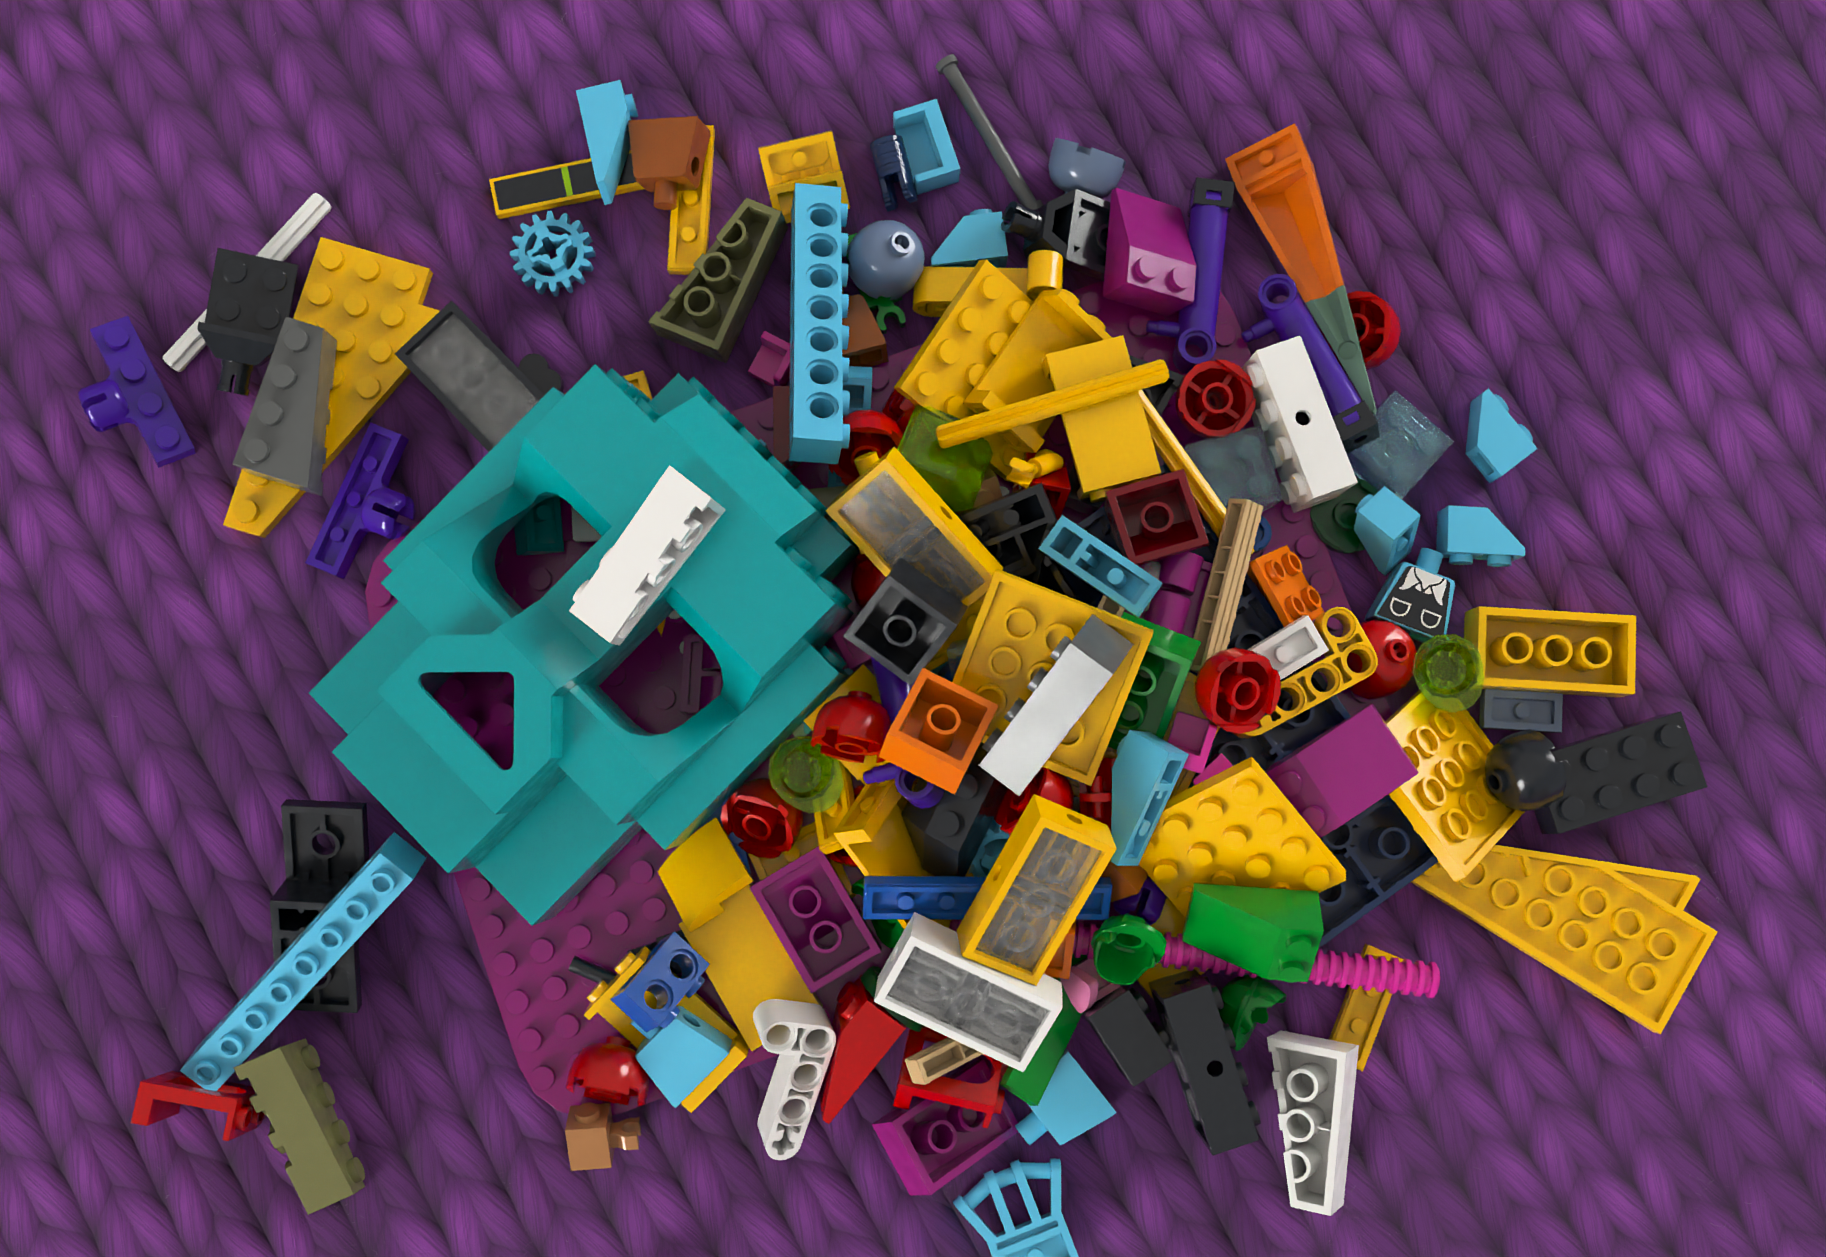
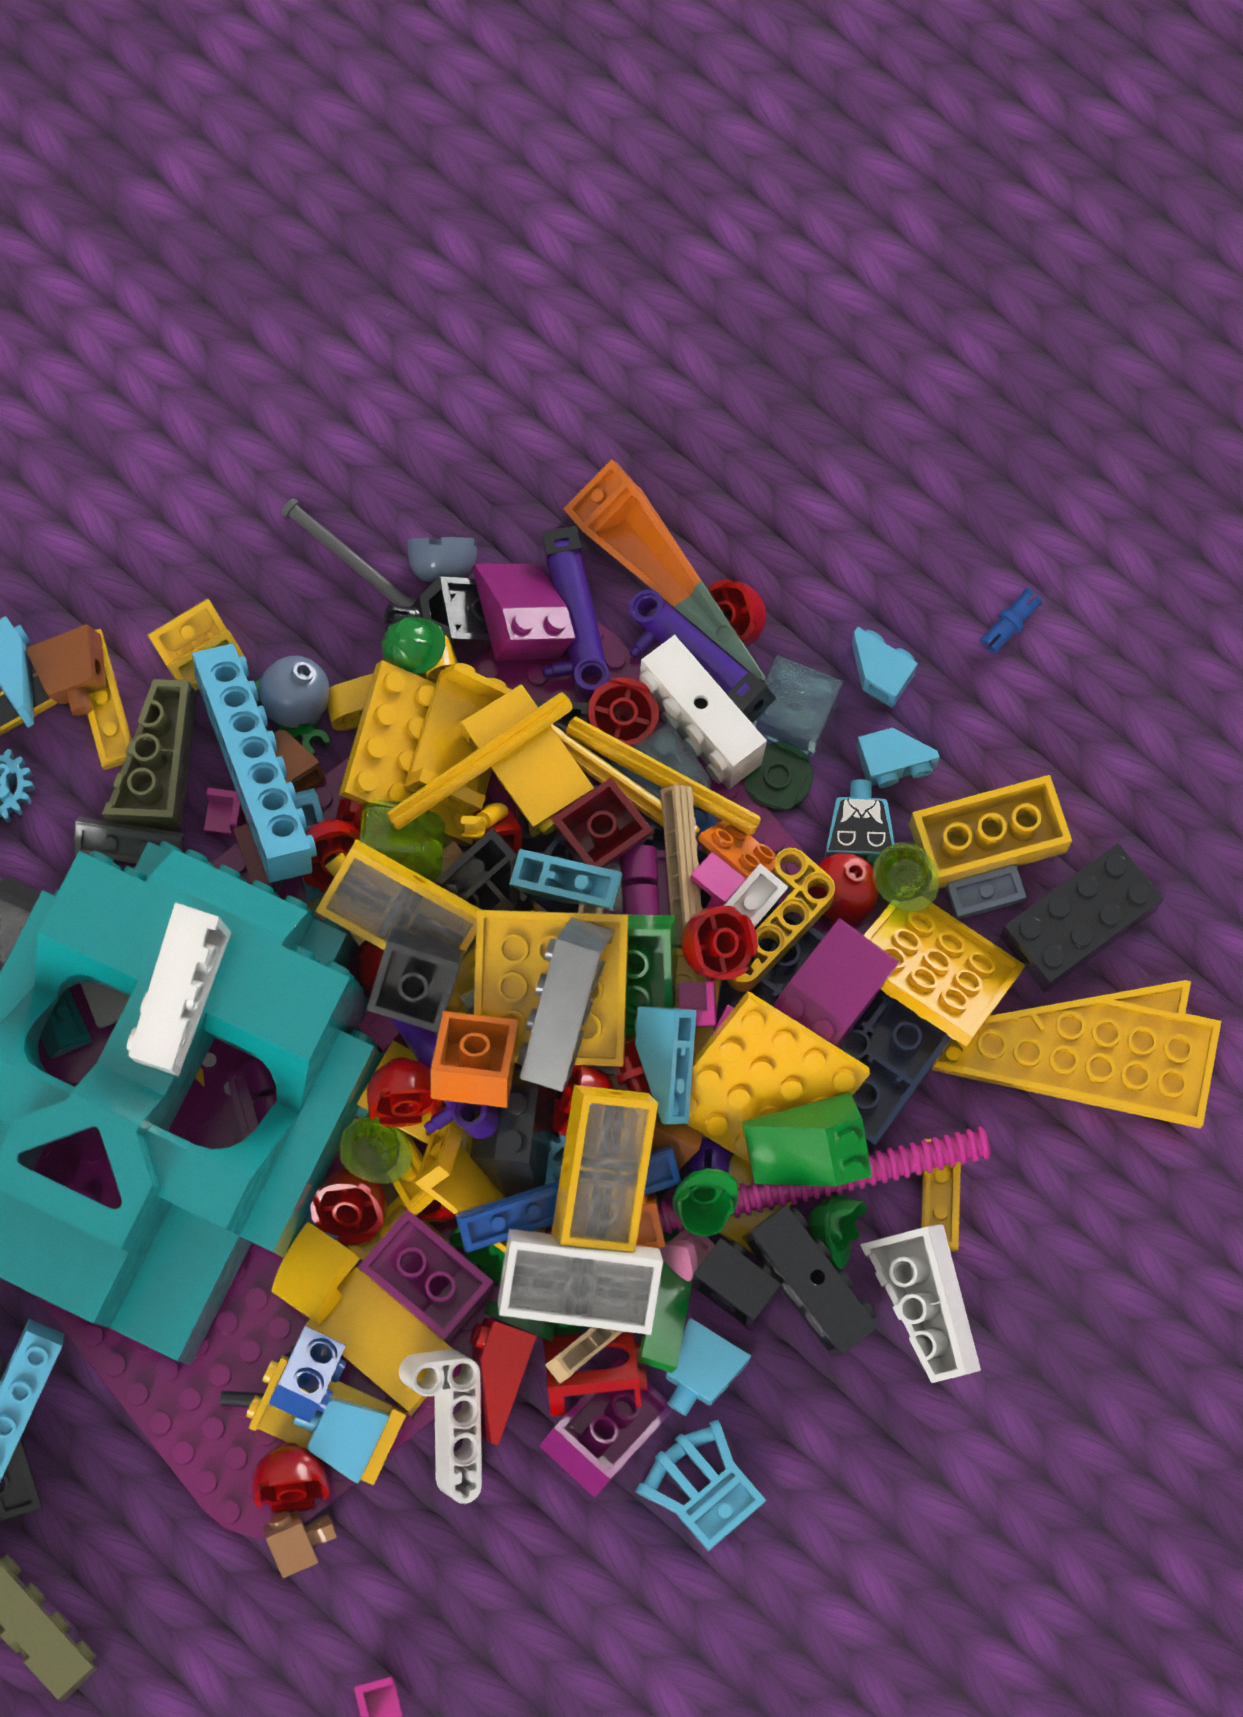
camera: 15 degrees left, 10 degrees down
(664, 356) = (120, 840): none -> dark grey tile
(893, 167) = (273, 611): dark blue hinge -> none
(927, 146) = (296, 585): medium azure panel -> none
(972, 240) = (361, 651): medium azure slope -> none
(1024, 253) = (413, 644): none -> green piece
(1235, 480) = (662, 774): none -> yellow axle
(1256, 616) = (717, 880): none -> dark pink panel
(1386, 528) = (811, 775): medium azure slope -> none
(1524, 771) = (1000, 939): black cylinder -> none
(1646, 434) = (1011, 621): none -> blue pin

